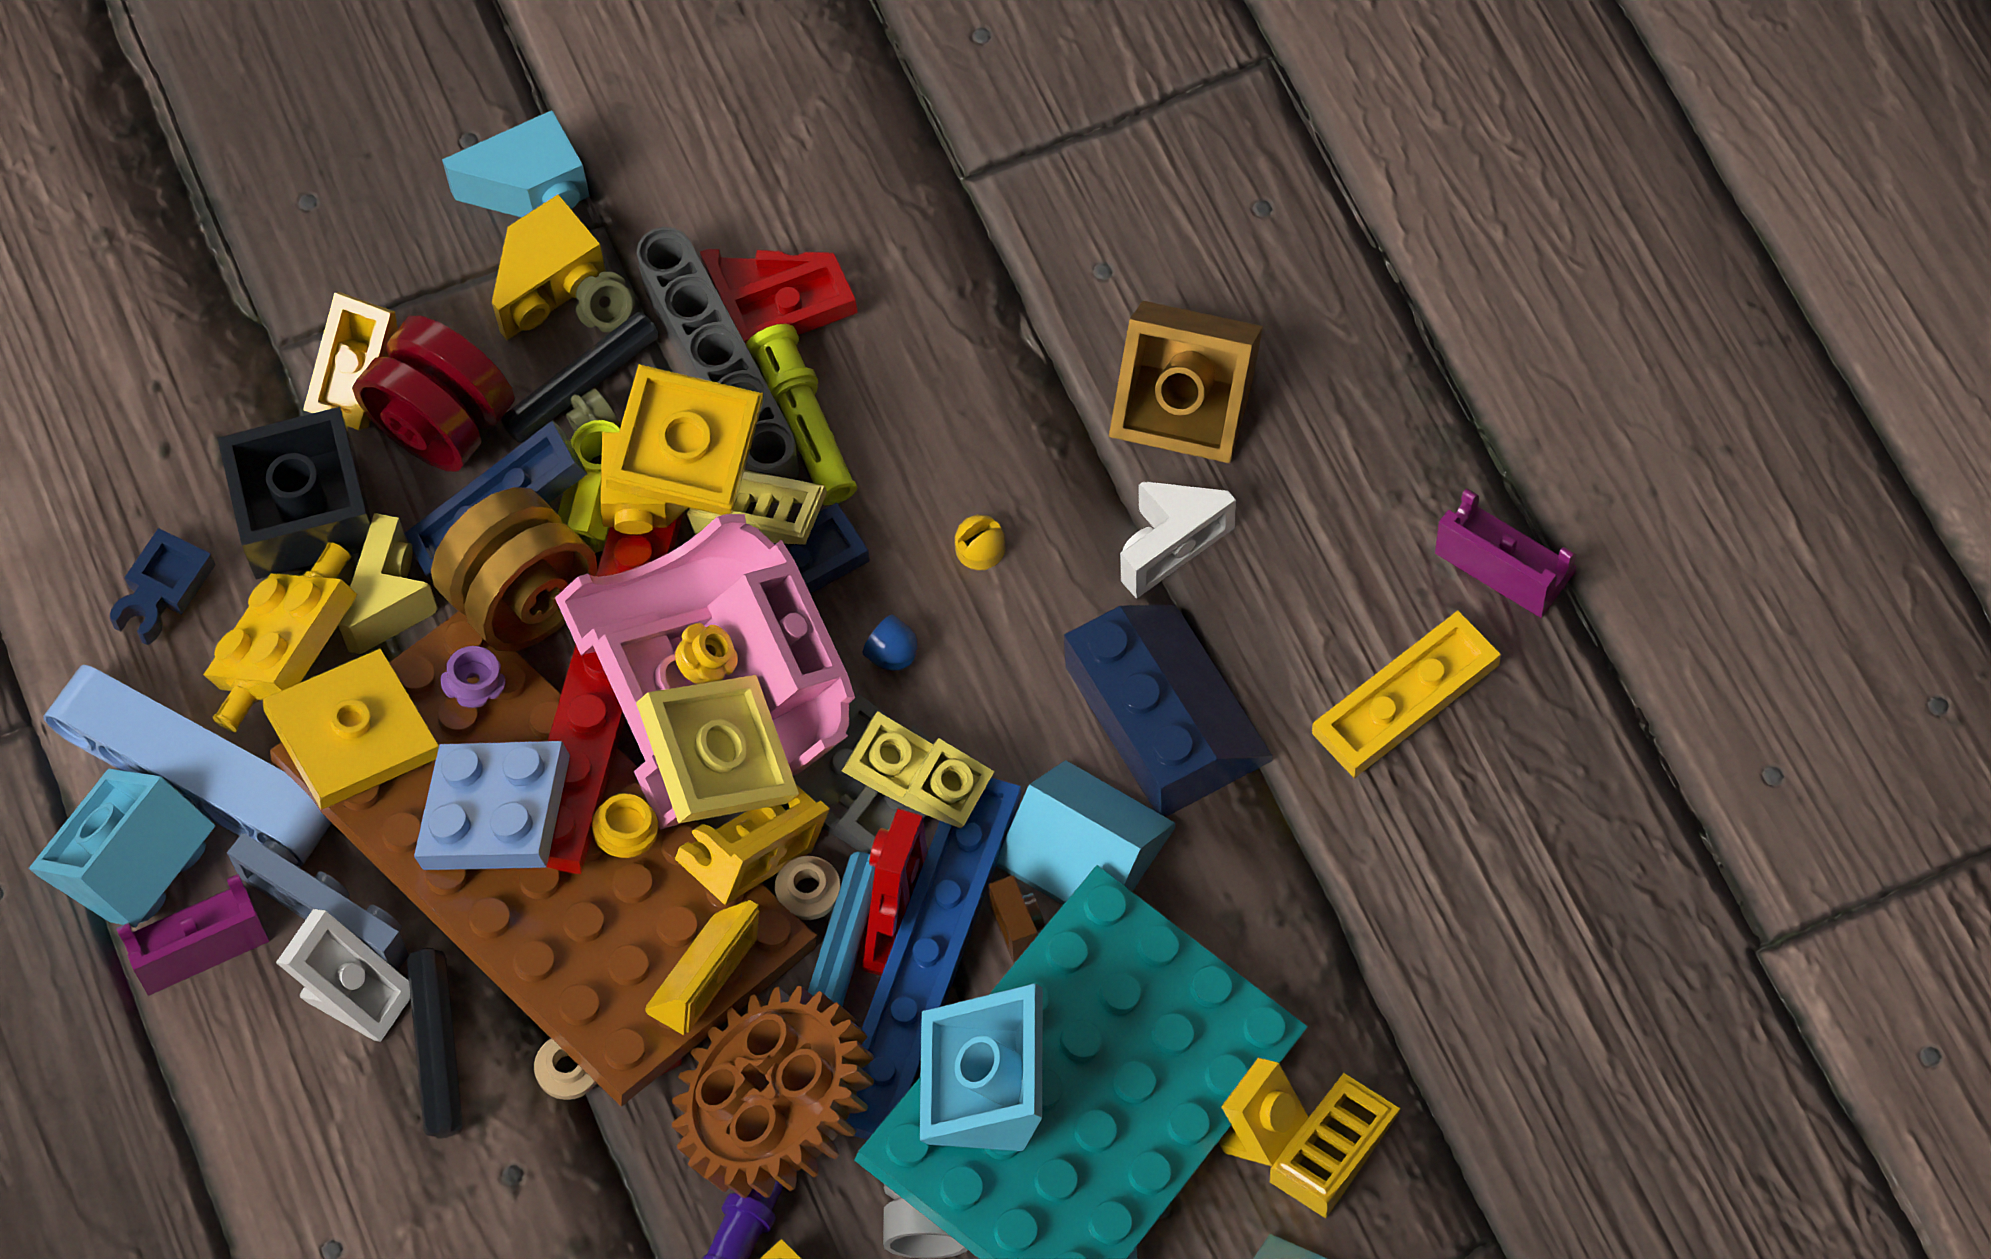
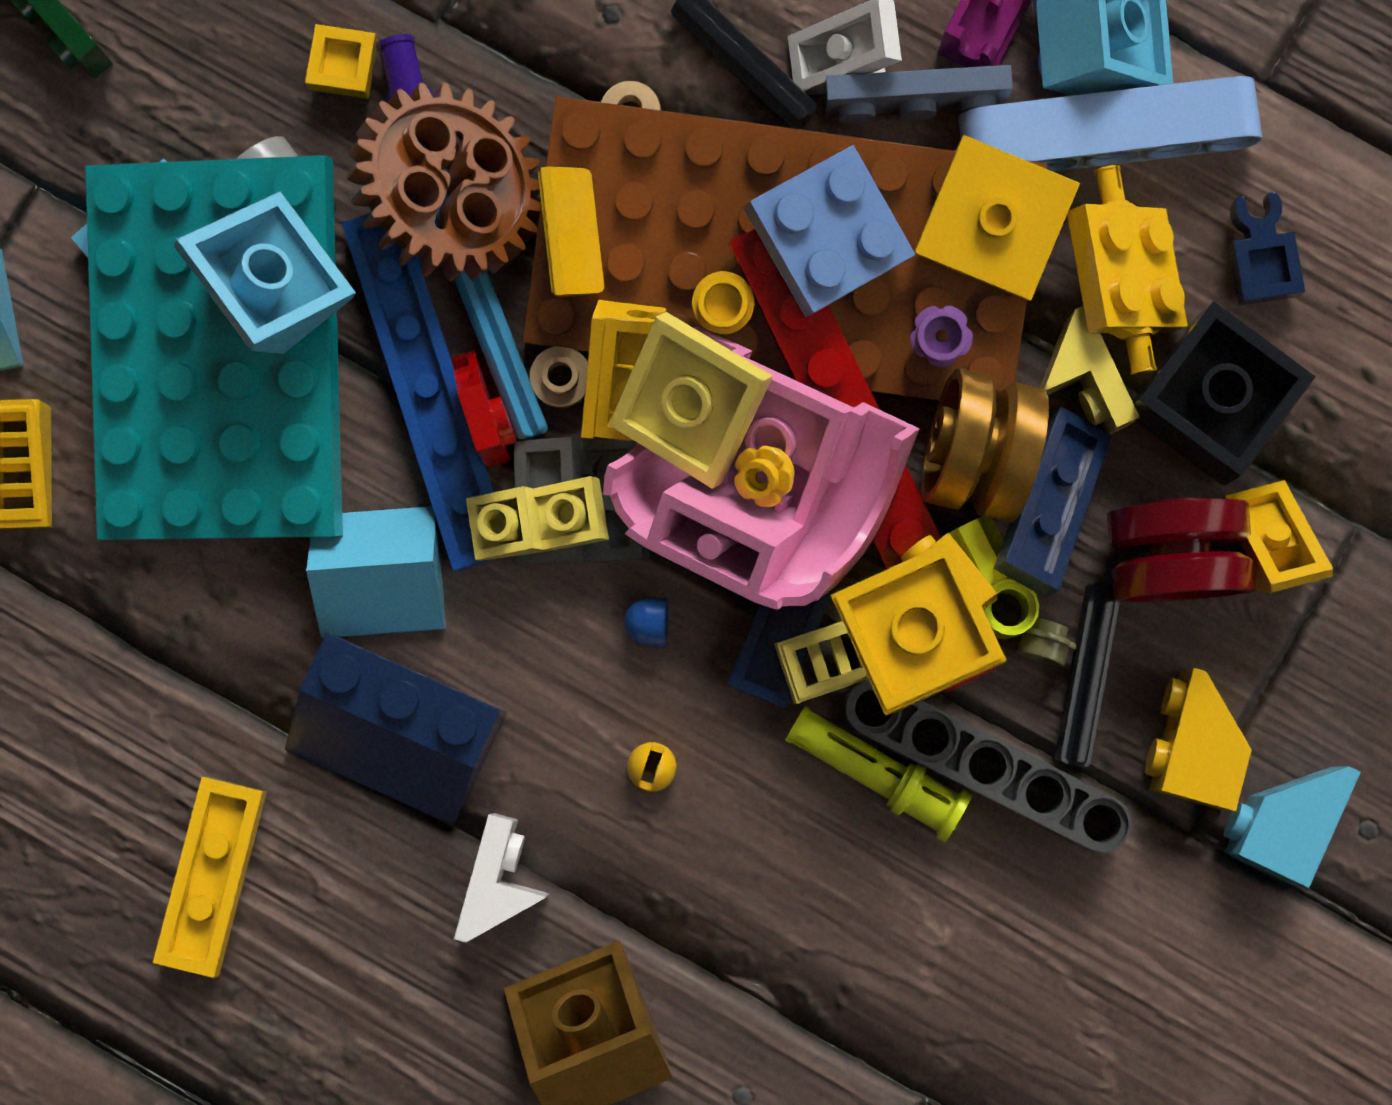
camera: 140 degrees right, 20 degrees up
(620, 306) = (1111, 744): olive plate -> none
(780, 289) = (988, 866): red wing -> none
(1015, 915) = (376, 463): reddish brown plate -> none
(1262, 1114) = (66, 432): yellow bracket -> none
(1503, 556) = (214, 1064): magenta hinge -> none

